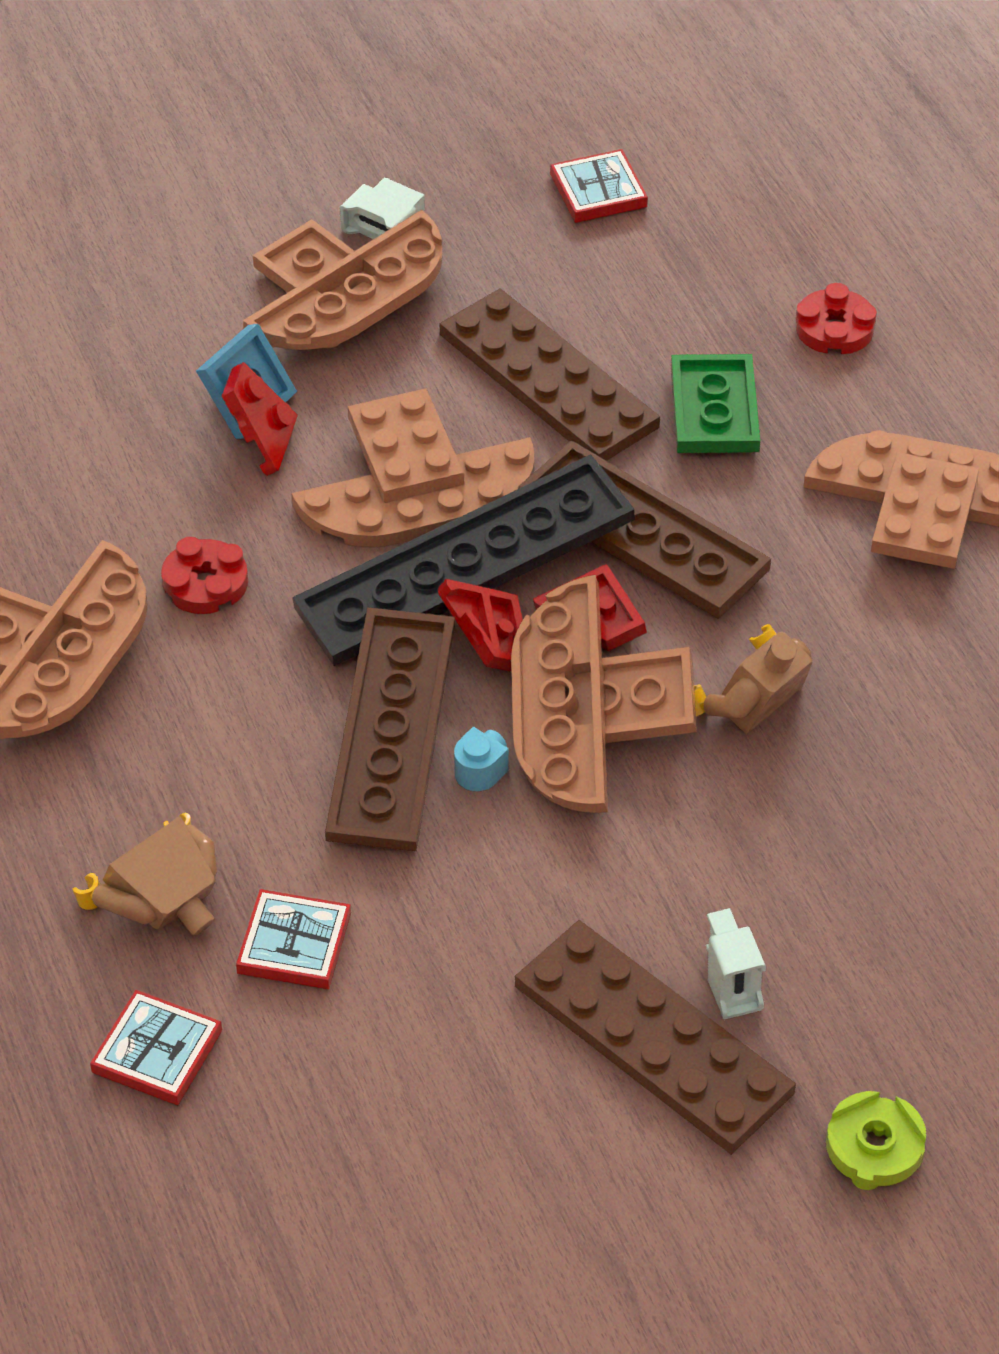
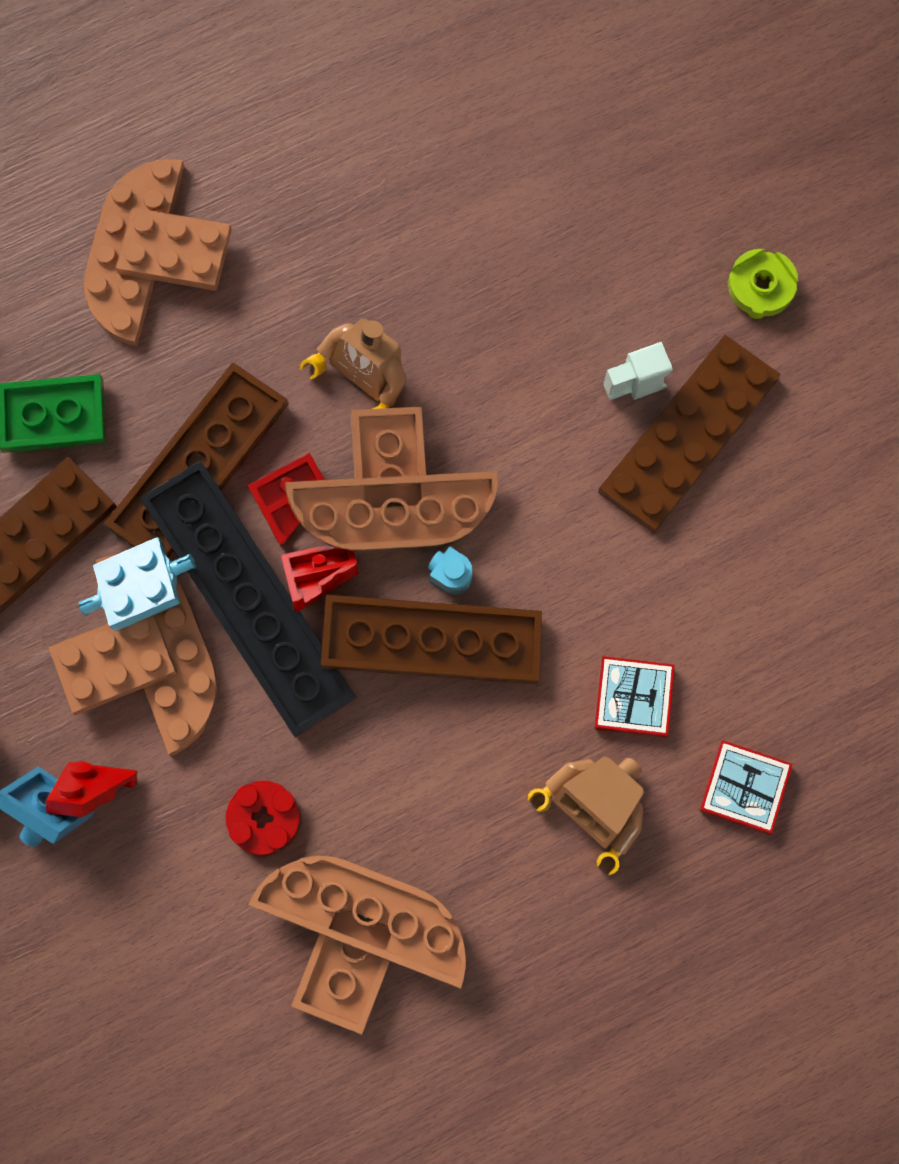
camera: 90 degrees left, 25 degrees up
(488, 454) = (136, 584): none -> plate

